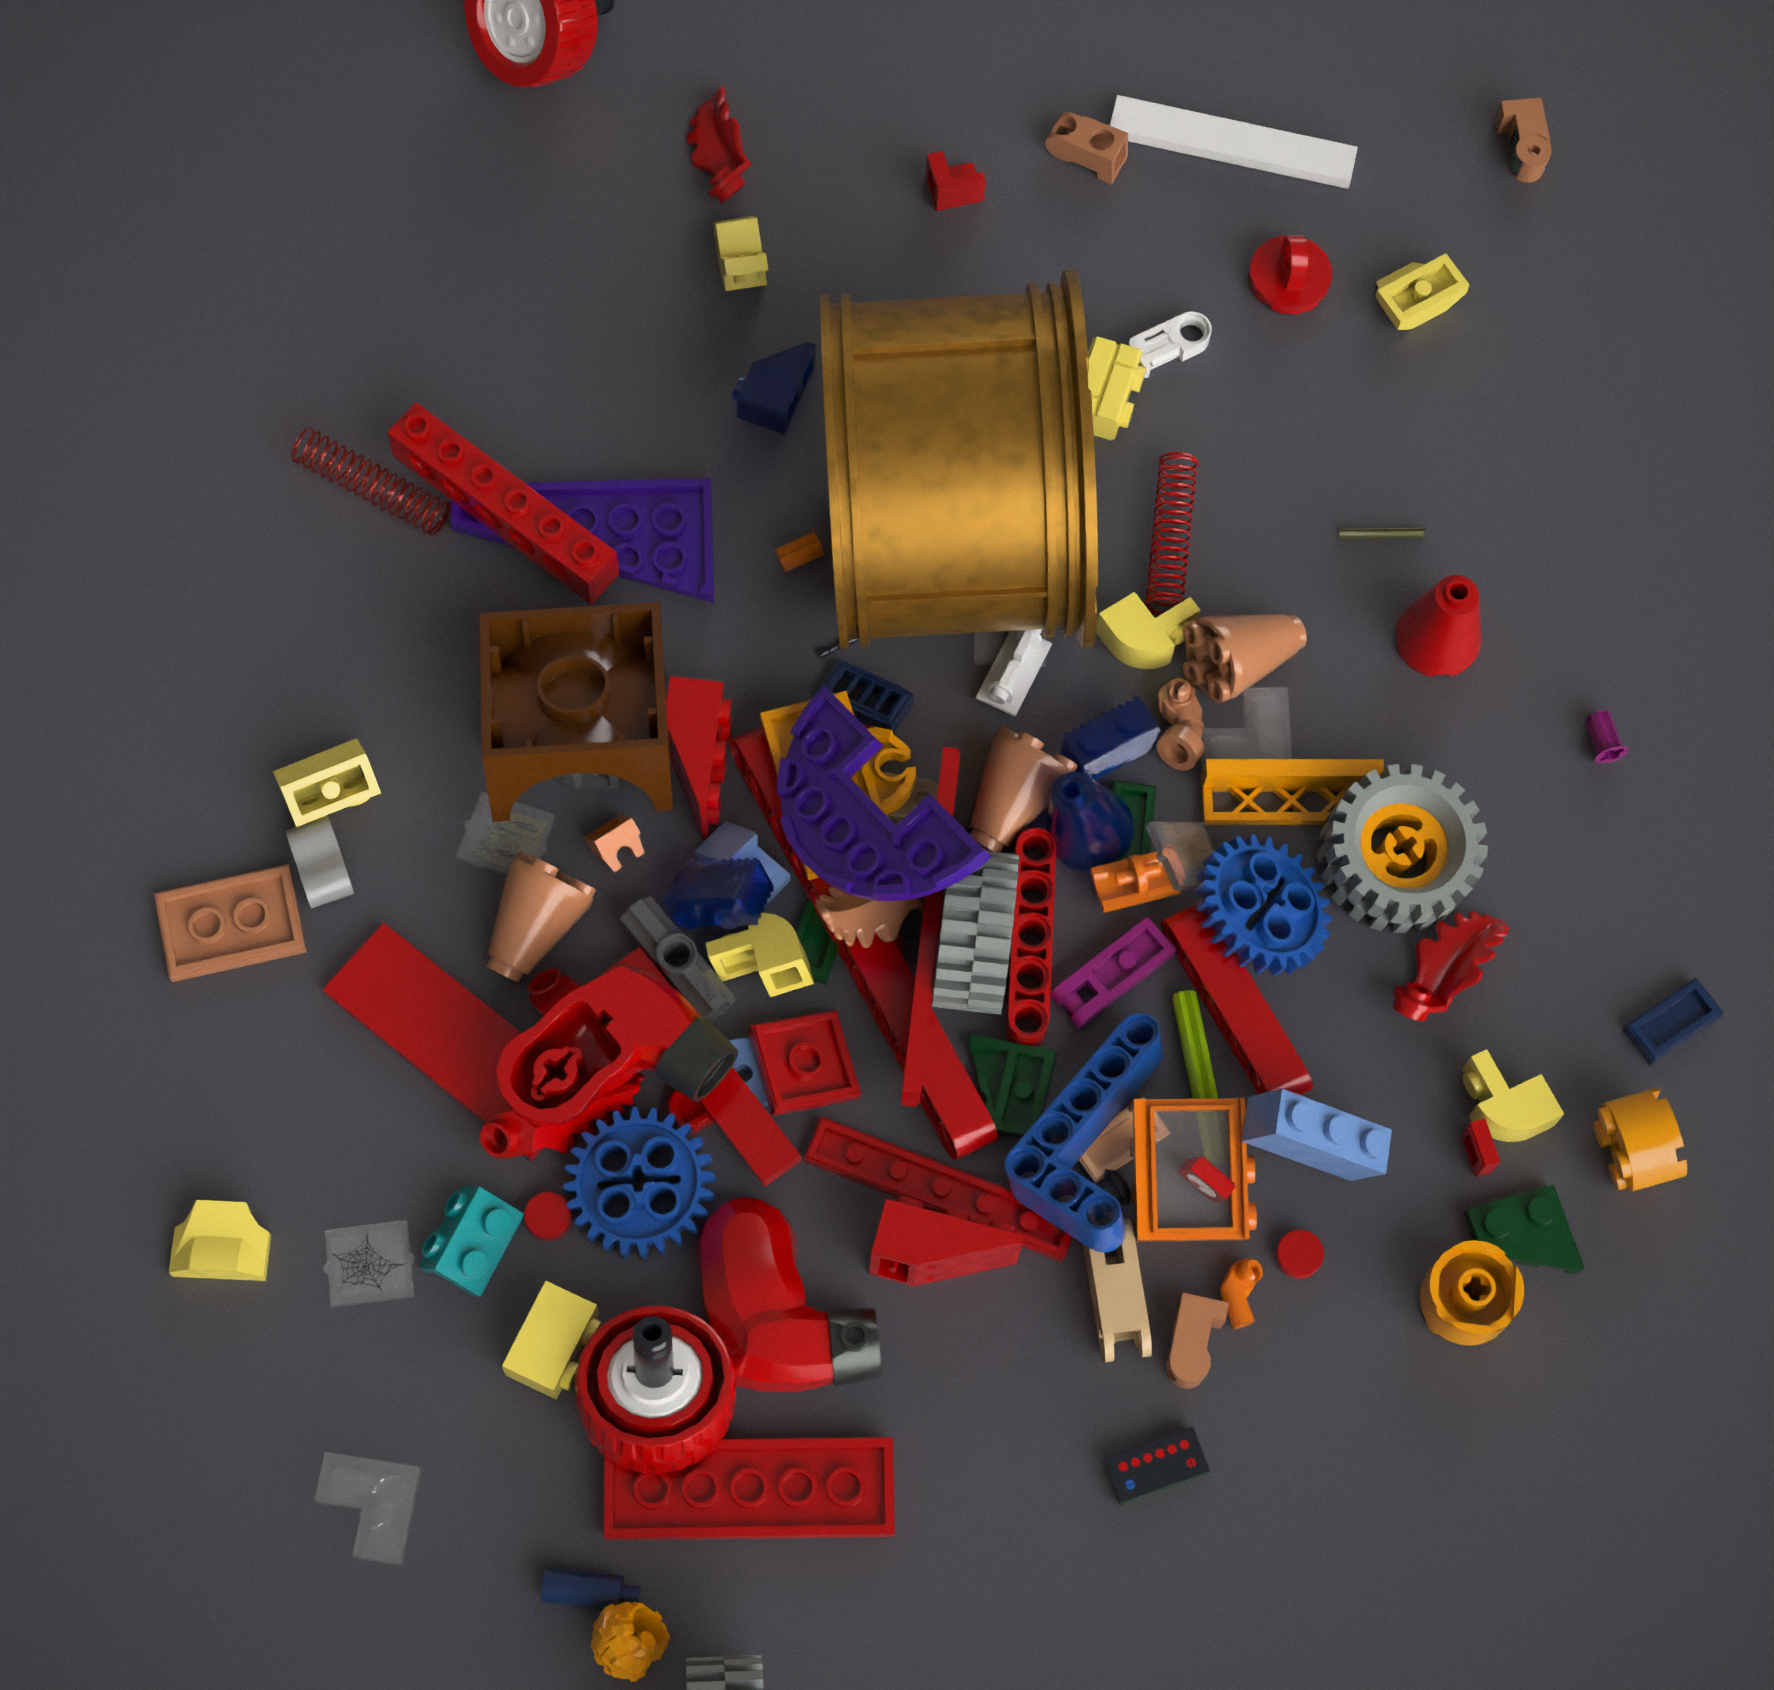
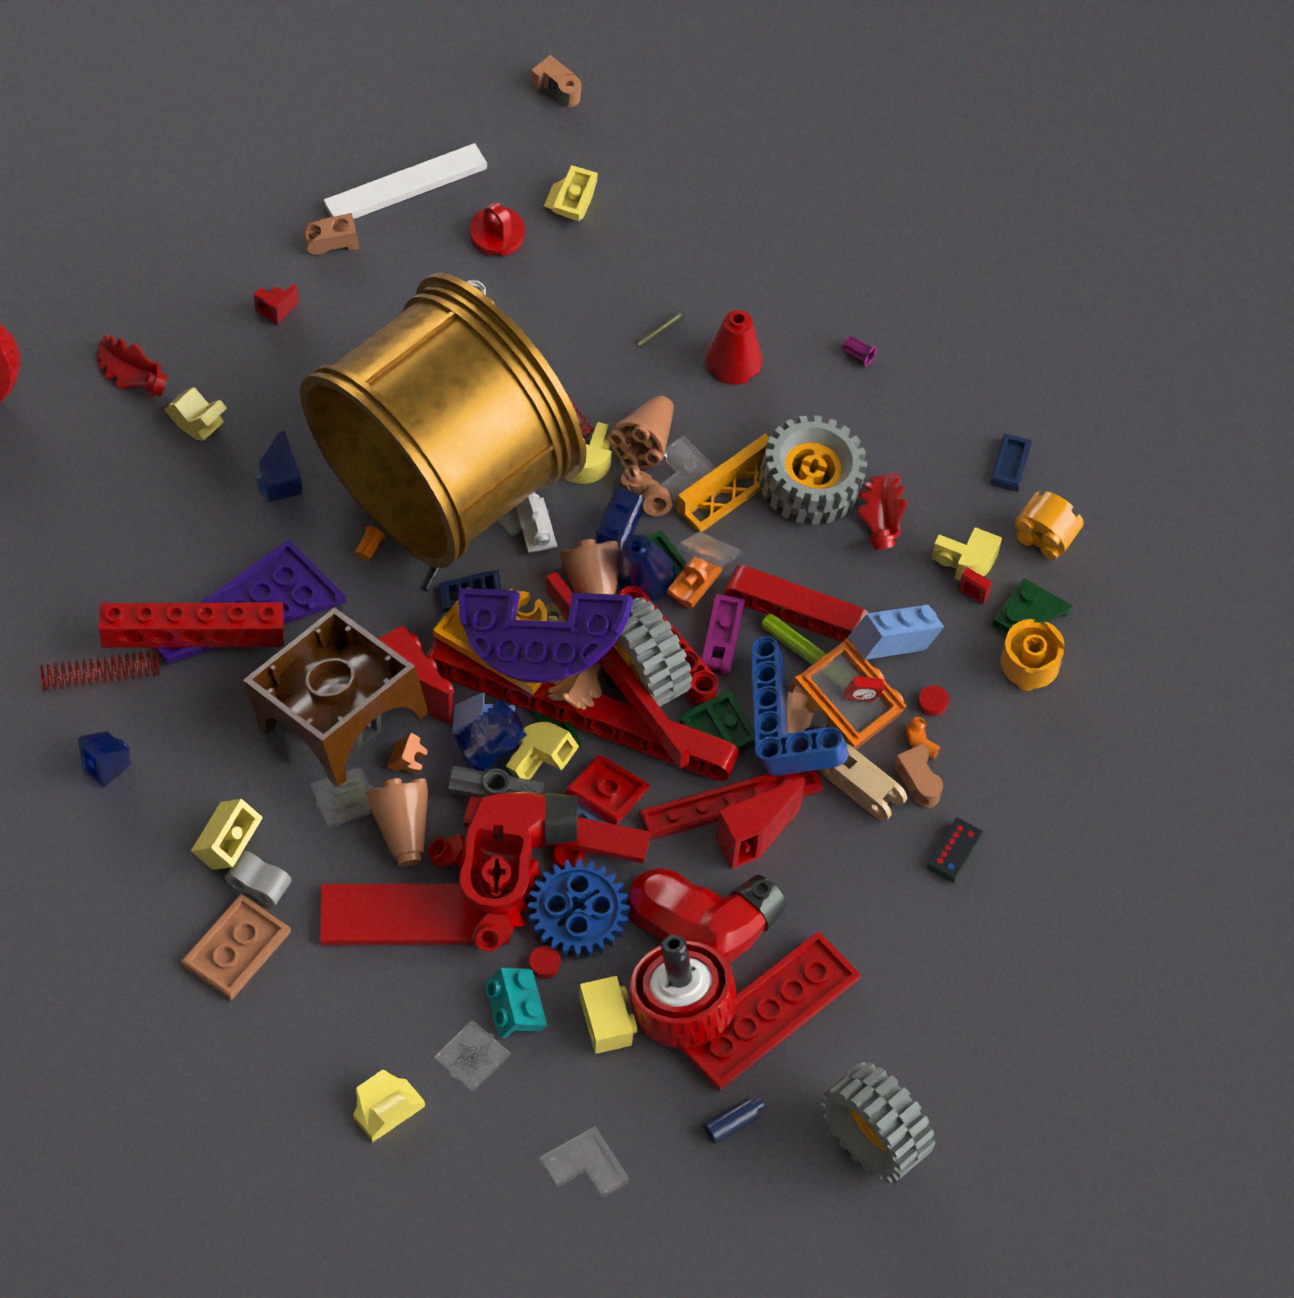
camera: 40 degrees left, 10 degrees down
(280, 585) = (103, 756): none -> clear blue slope
(628, 1639) = (777, 1123): light orange piece -> none
(1289, 924) = (749, 543): blue gear -> none

